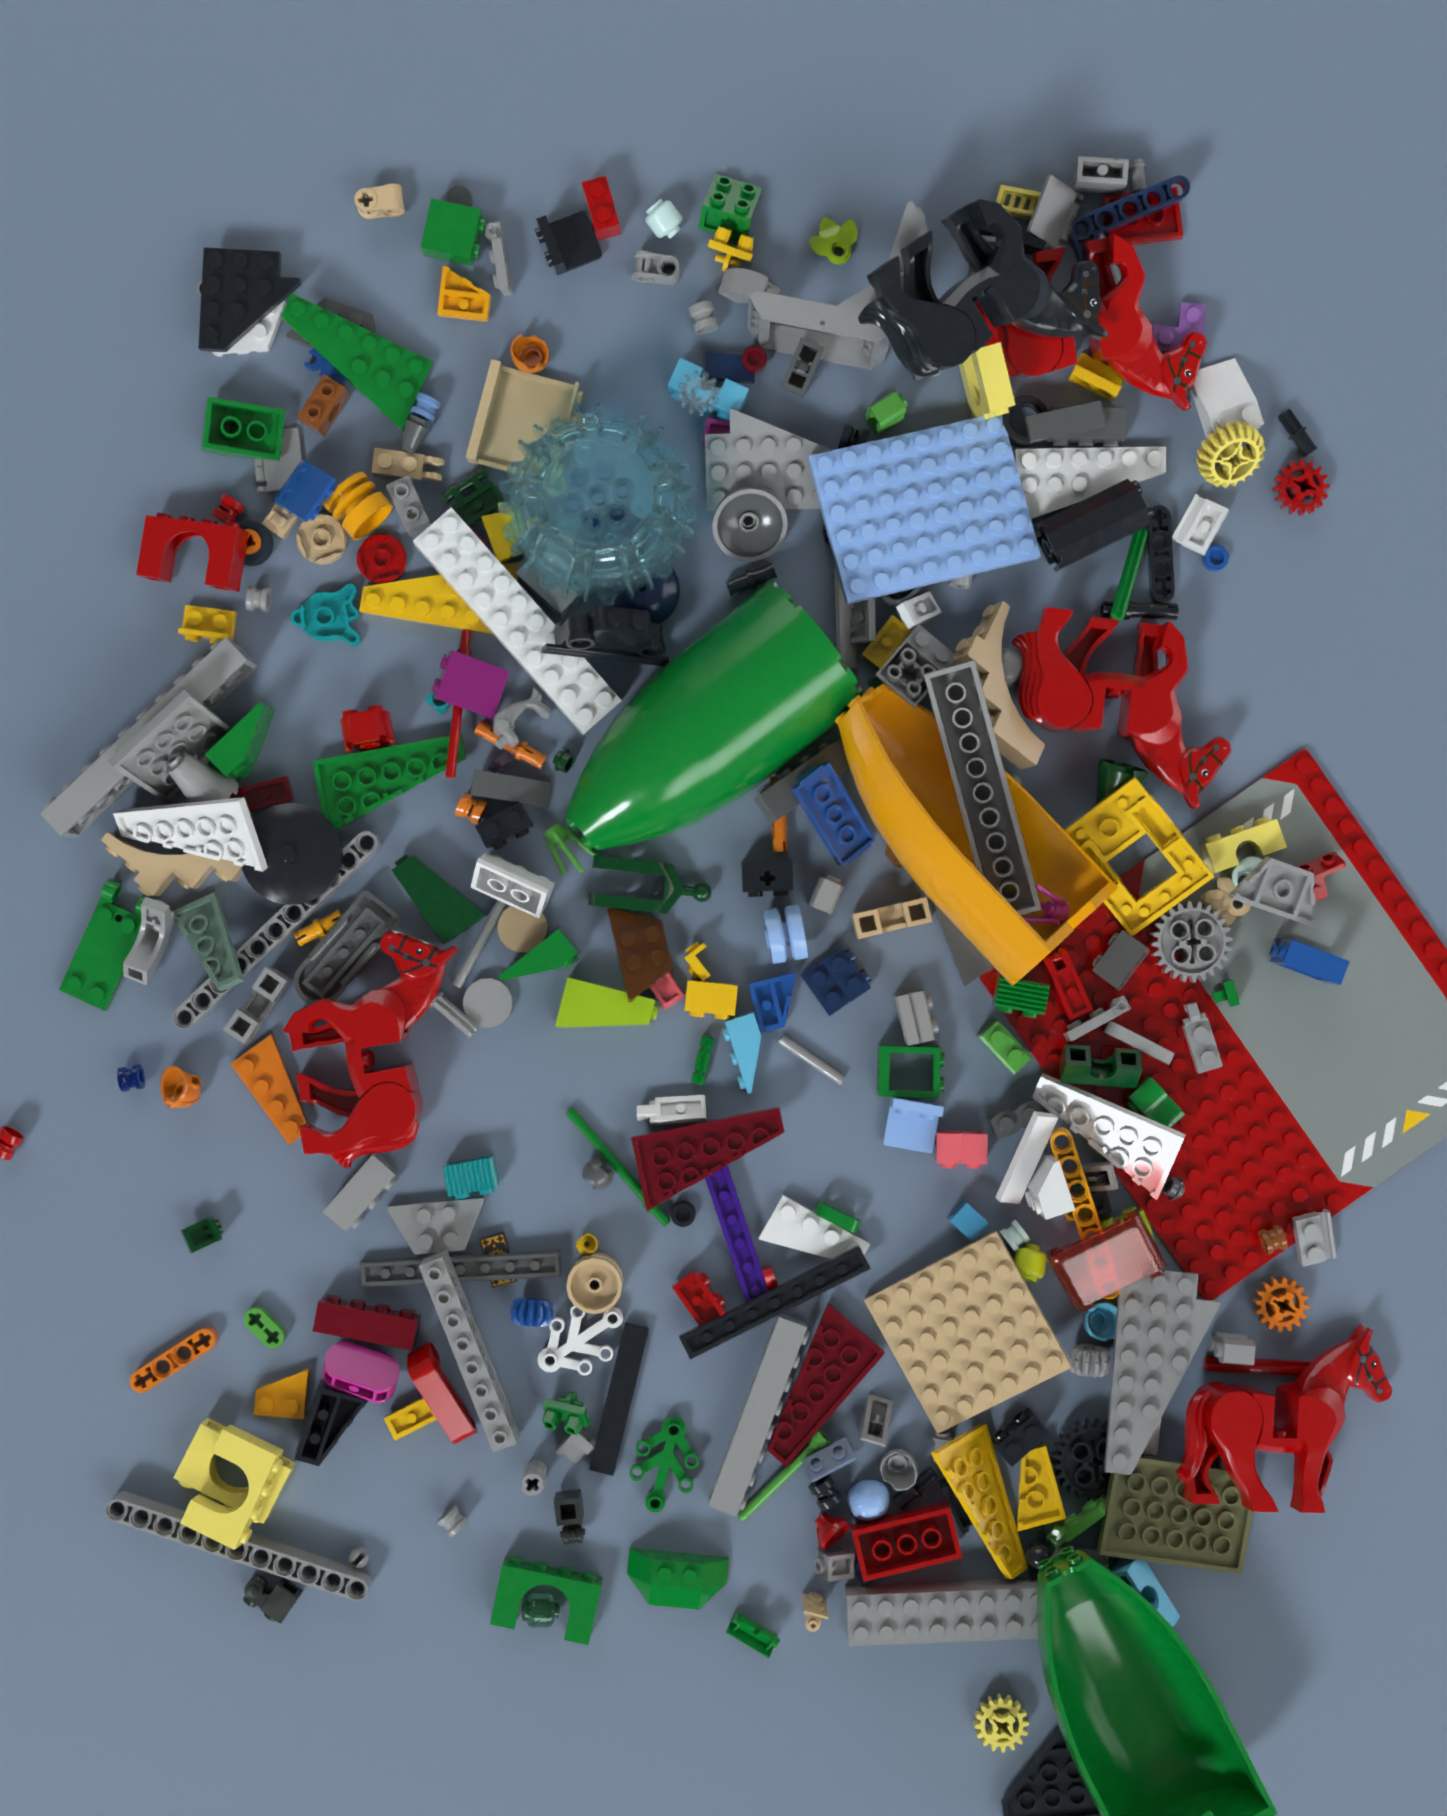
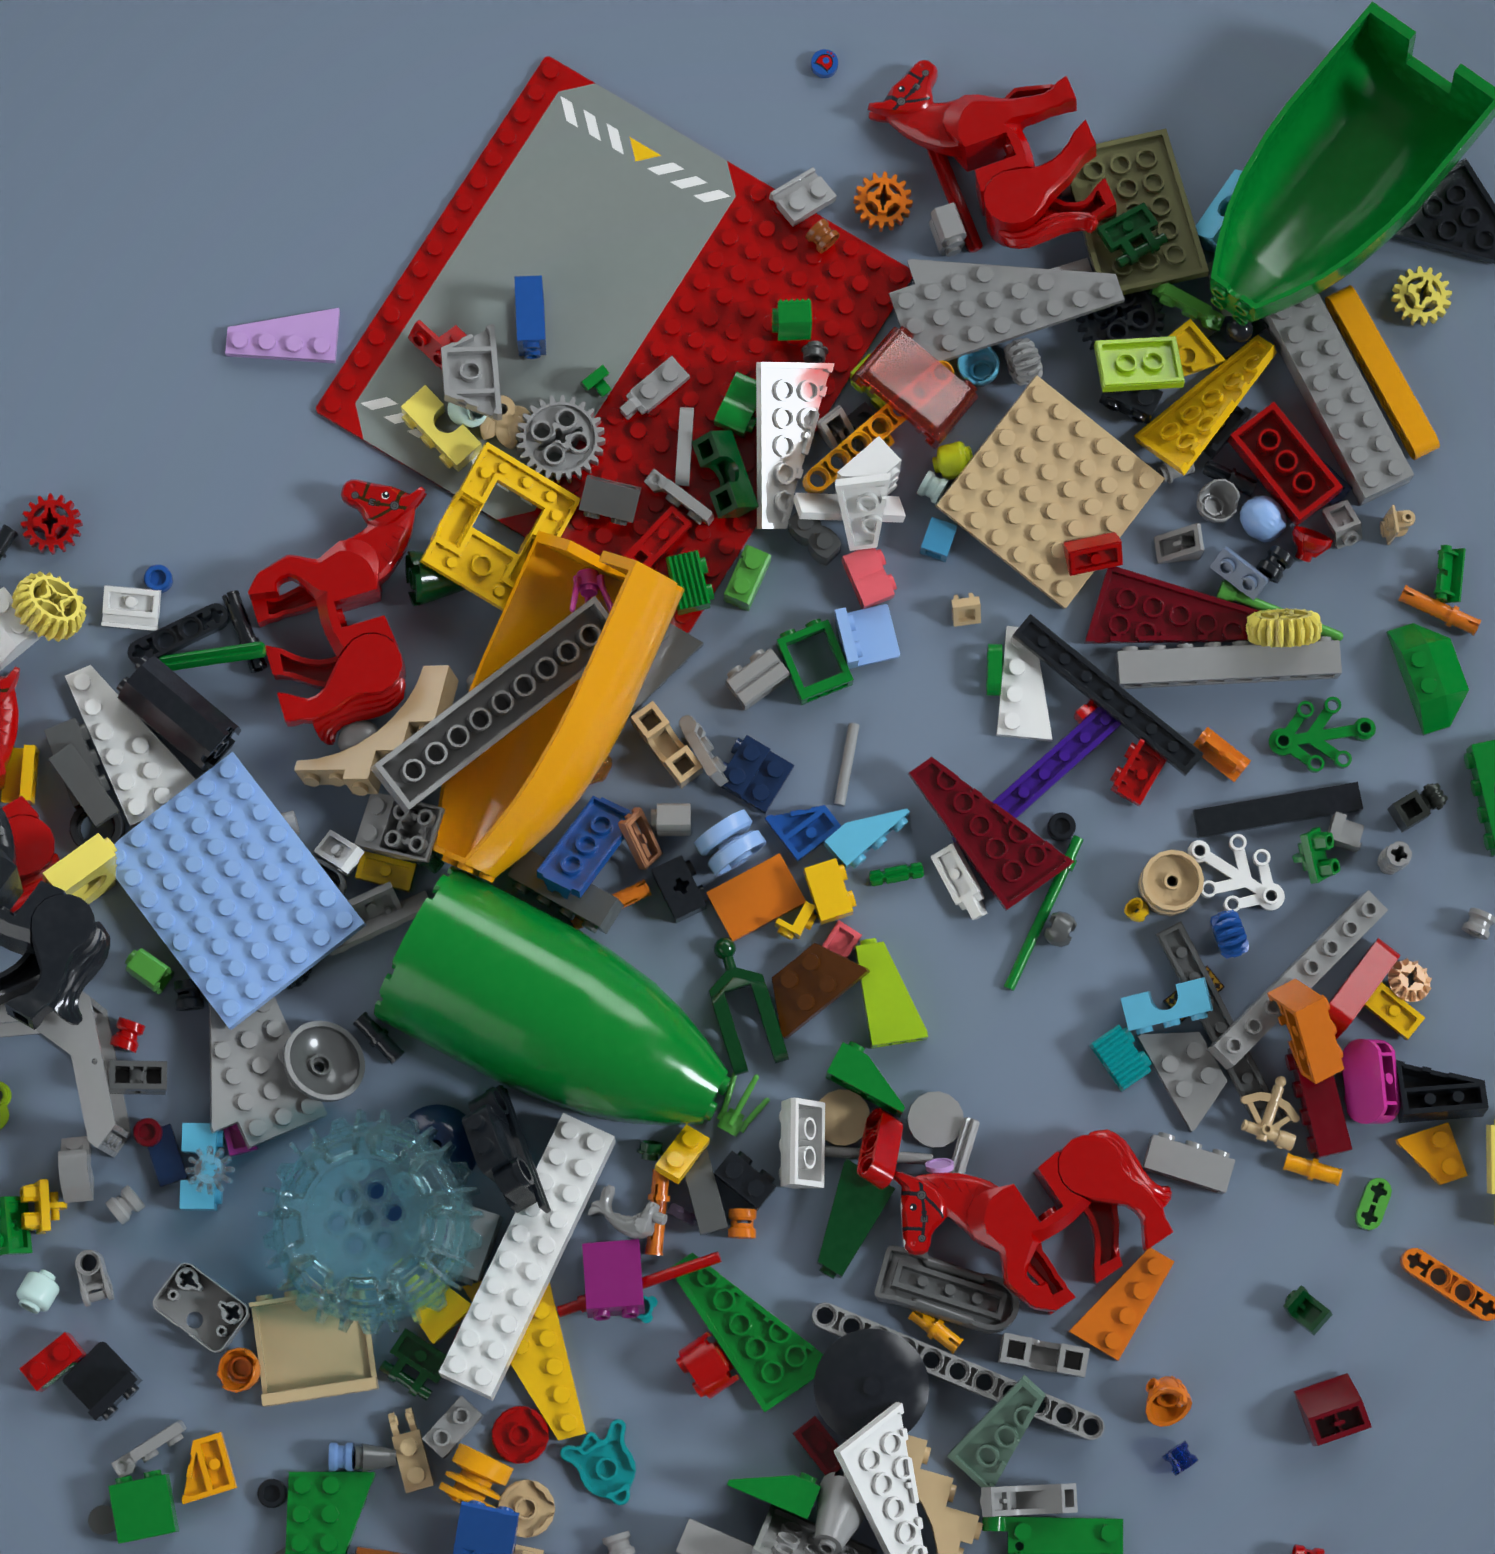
camera: 125 degrees left, 10 degrees down
(113, 1217) = (1332, 1409): none -> dark red slope
(313, 1291) = (1312, 1169): none -> light orange pin
(362, 1267) = (1263, 1128): none -> tan piece
(419, 1343) = (1310, 1029): none -> orange wedge
(422, 342) = (272, 1493): none -> black tile
(430, 1432) = (1399, 982): none -> light nougat gear
(446, 988) = (939, 1165): none -> lavender piece
(480, 945) = (879, 1148): none -> red beam
(497, 1211) = (1143, 1013): none -> medium azure arch
(547, 784) = (682, 1154): none -> yellow plate
(602, 353) = (177, 1302): none -> light grey axle
(684, 1373) = (1221, 754): none -> orange hinge
(719, 1617) = (1440, 610): none -> orange pin
(733, 936) = (756, 897): none -> orange tile
(765, 1476) = (1284, 627): none -> light yellow gear
(819, 858) = (638, 841): none -> nougat tile
(840, 374) = (127, 1035): none -> red wheel
(874, 945) = (702, 748): none -> light grey hinge
(897, 1216) = (966, 610): none -> tan tile
(899, 1344) = (1093, 553): none -> red slope
(949, 1659) = (1382, 372): none -> light orange beam
(1019, 1168) = (862, 508): none -> white wing
(1044, 1458) = (1139, 364): none -> lime tile
(1167, 1503) = (1129, 227): none -> dark green plate
(1209, 1181) = (792, 320): none -> green brick
(1375, 756) = (292, 338): none -> lavender wing
(1424, 1308) = (824, 63): none -> blue tile

